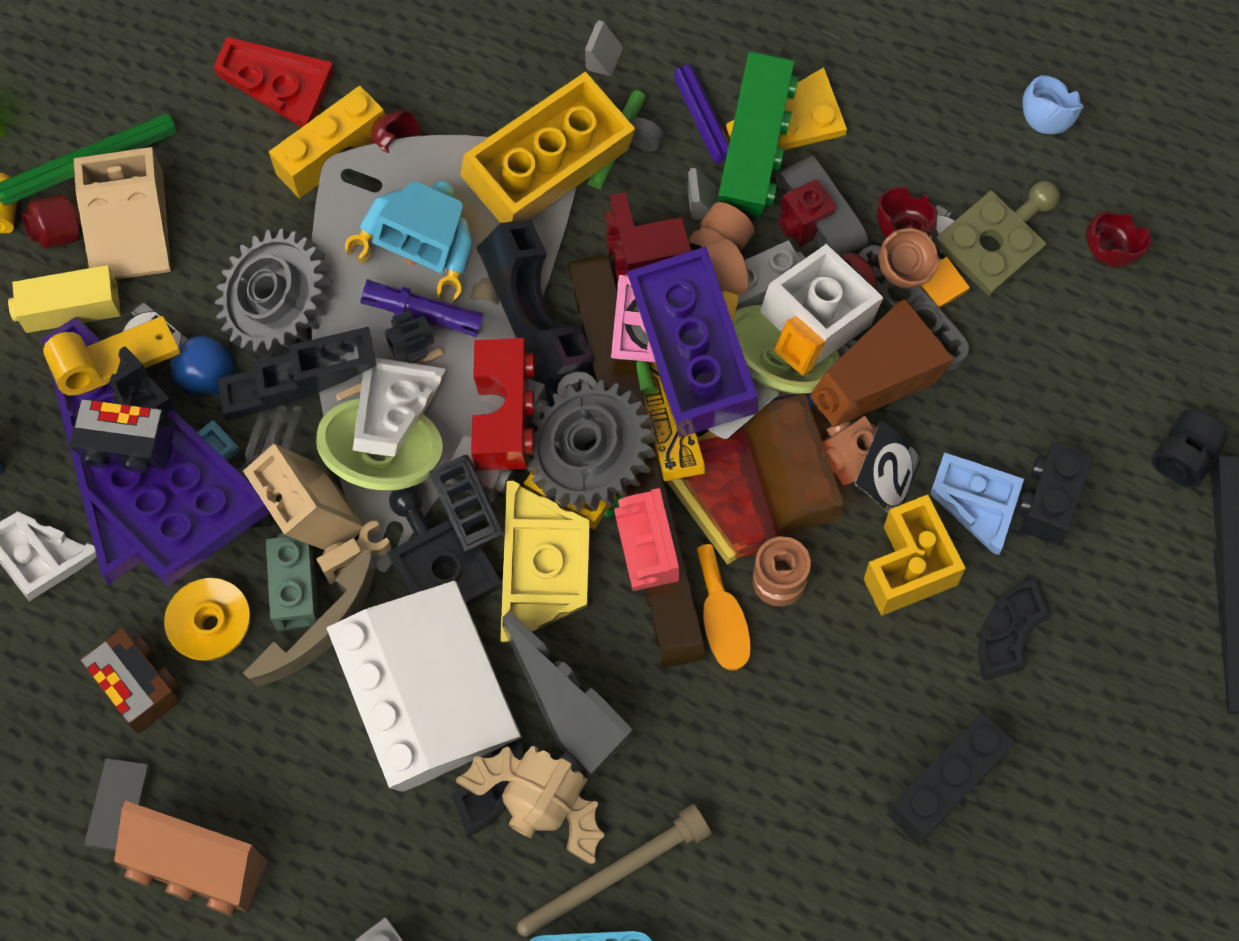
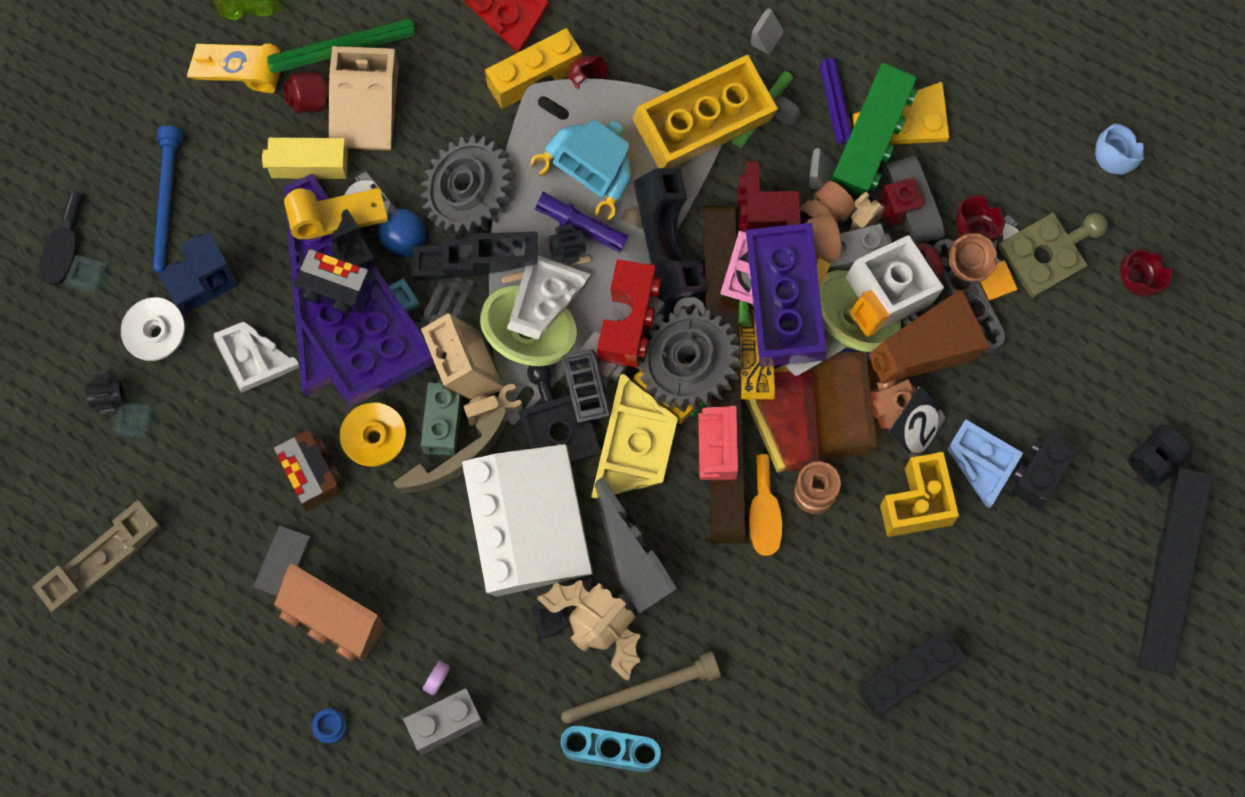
camera: 10 degrees right, 5 degrees up
(345, 912) = (436, 678): none -> lavender tile
(769, 231) = (866, 213): none -> tan plate
(1007, 627) = (983, 566): black tile -> none

